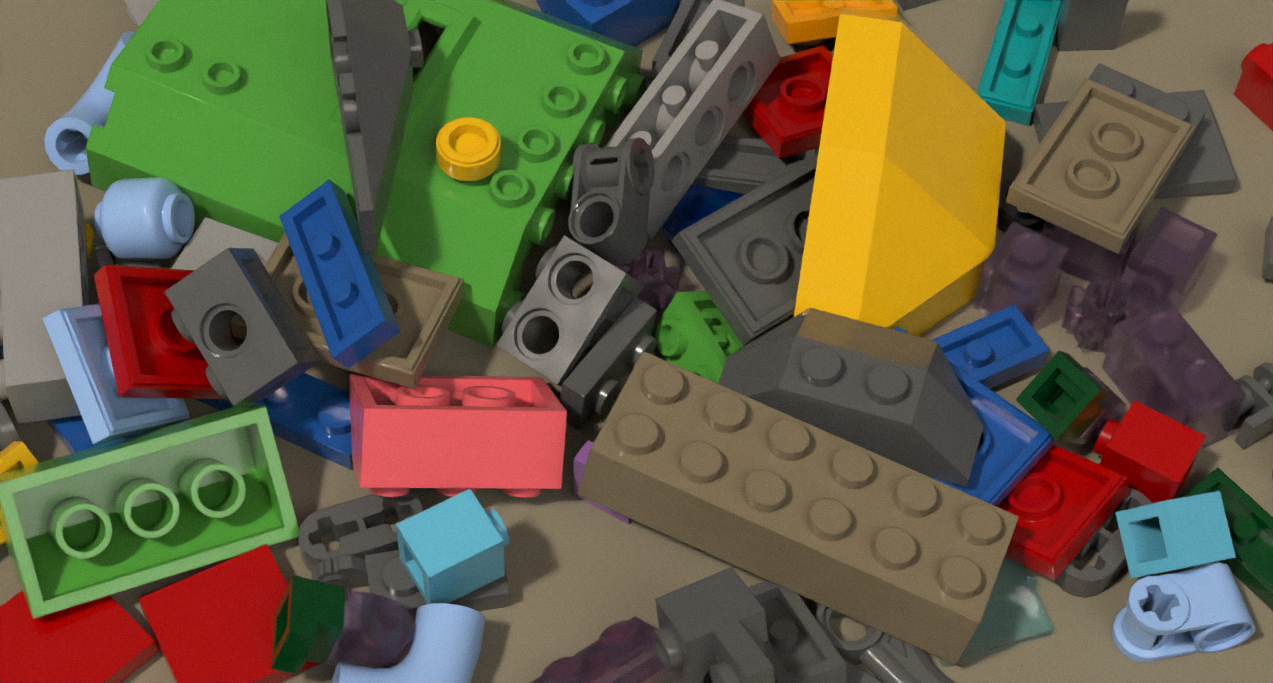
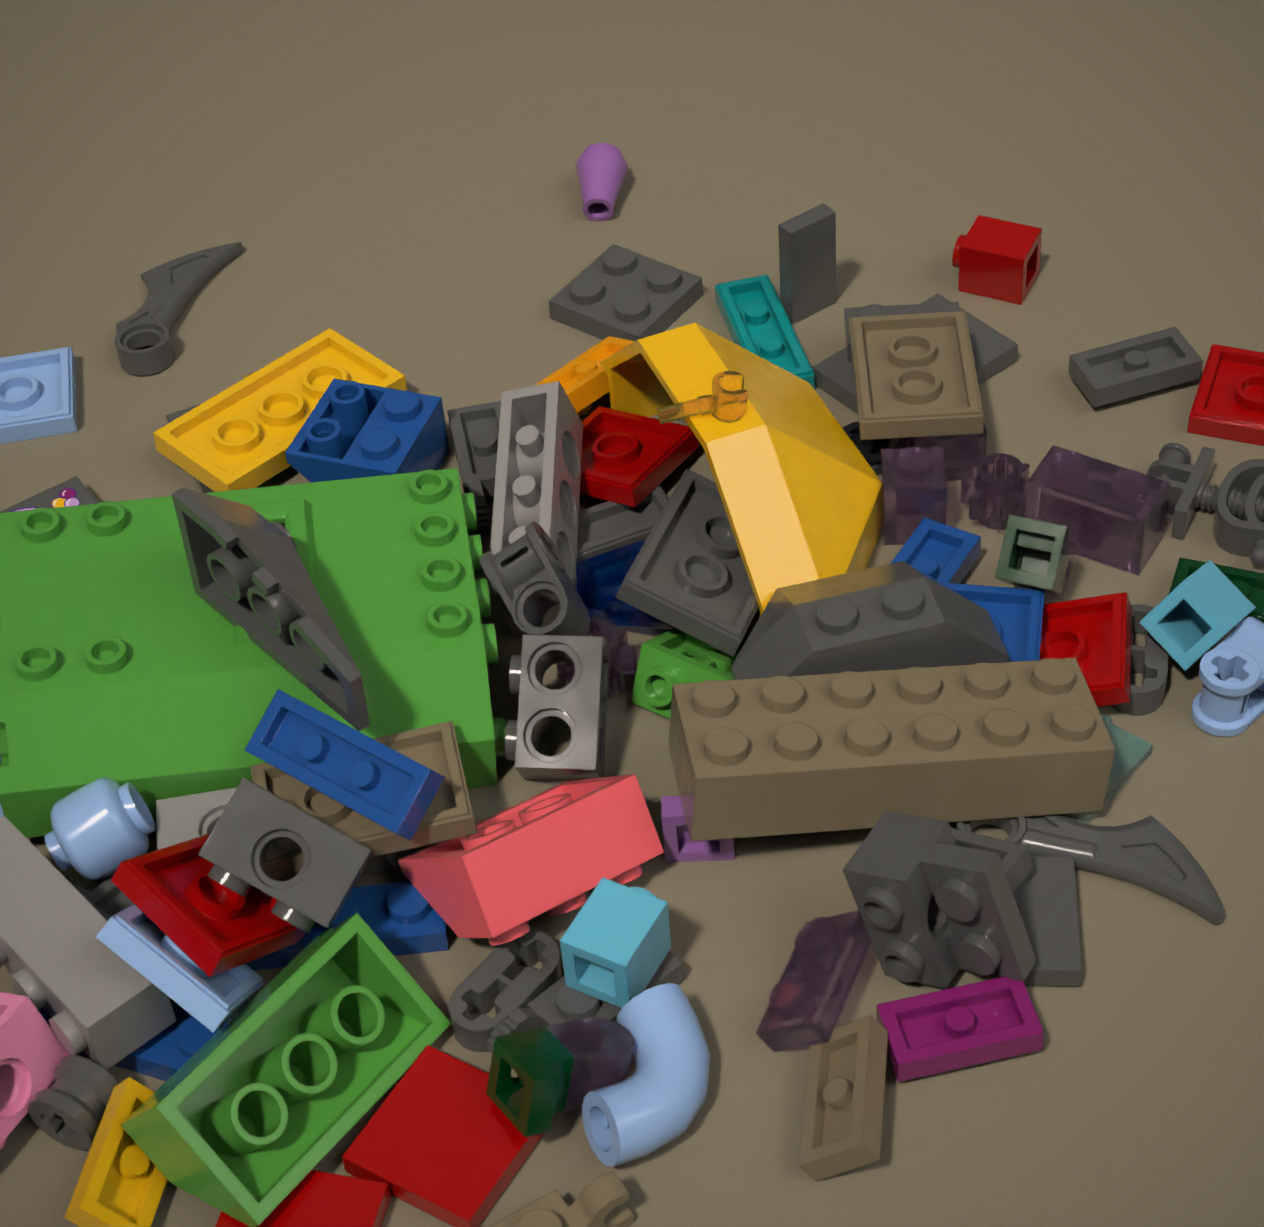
camera: 25 degrees left, 10 degrees down
(468, 149) = (389, 601): yellow tile -> none
(597, 377) = (625, 716): dark grey plate -> none
(860, 114) = (725, 402): none -> clear yellow hand
(1150, 451) = (1123, 563): red brick -> none
(1168, 260) = (1018, 421): clear purple brick -> none

